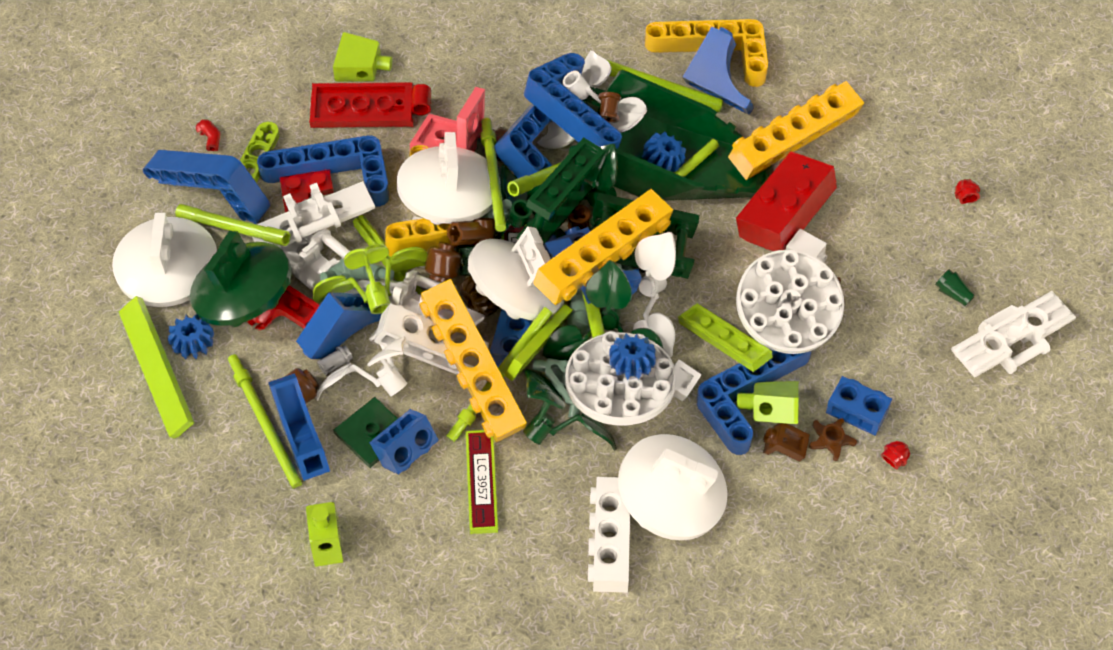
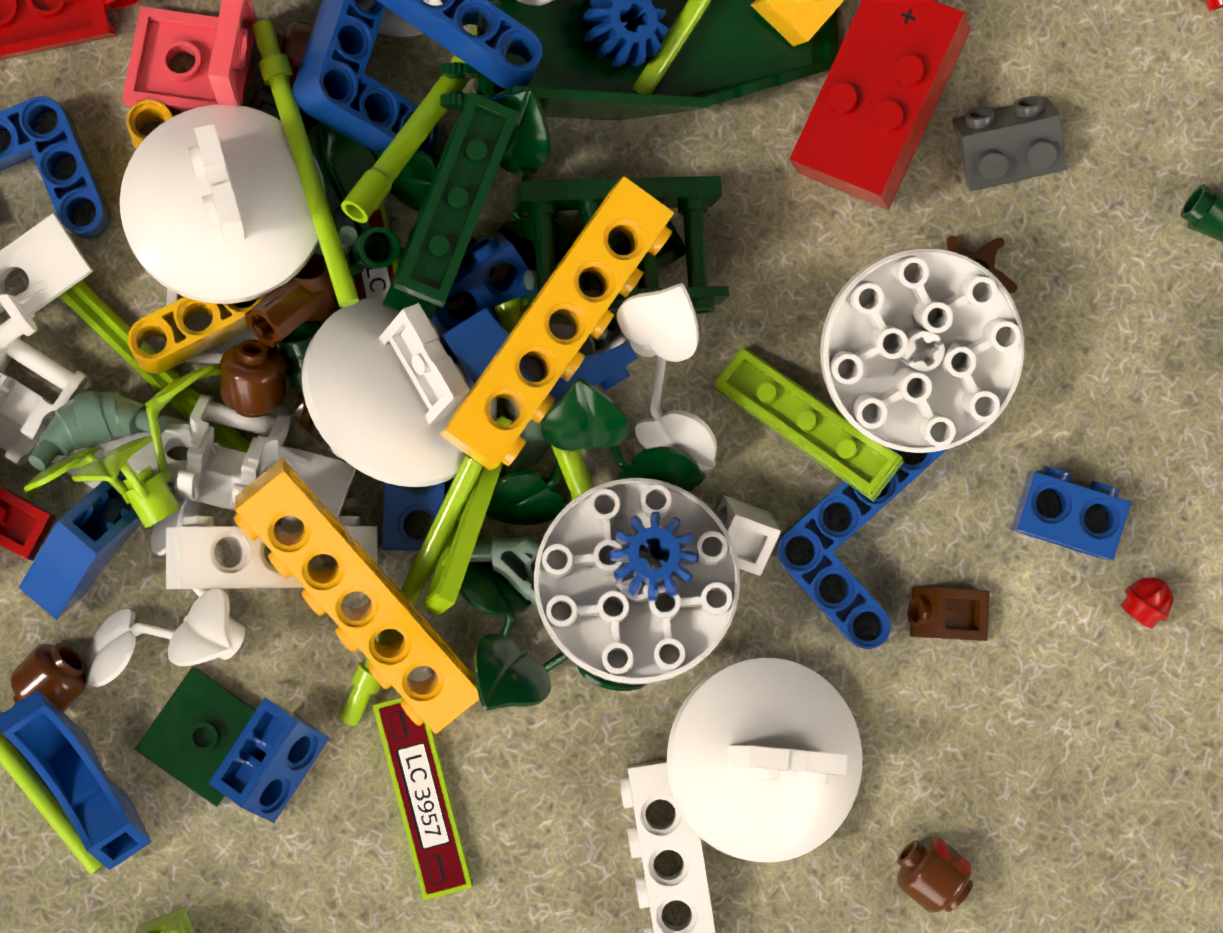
camera: 15 degrees left, 30 degrees up
(335, 360) = (100, 603): light grey pin -> none
(579, 217) = (492, 220): reddish brown bush -> none
(757, 566) = (934, 875): none -> reddish brown head
(772, 402) = (918, 549): lime torso -> none
(808, 244) = (932, 194): white brick -> none
(831, 437) = (1028, 584): reddish brown animal -> none
(851, 240) = (1010, 142): none -> dark grey bracket

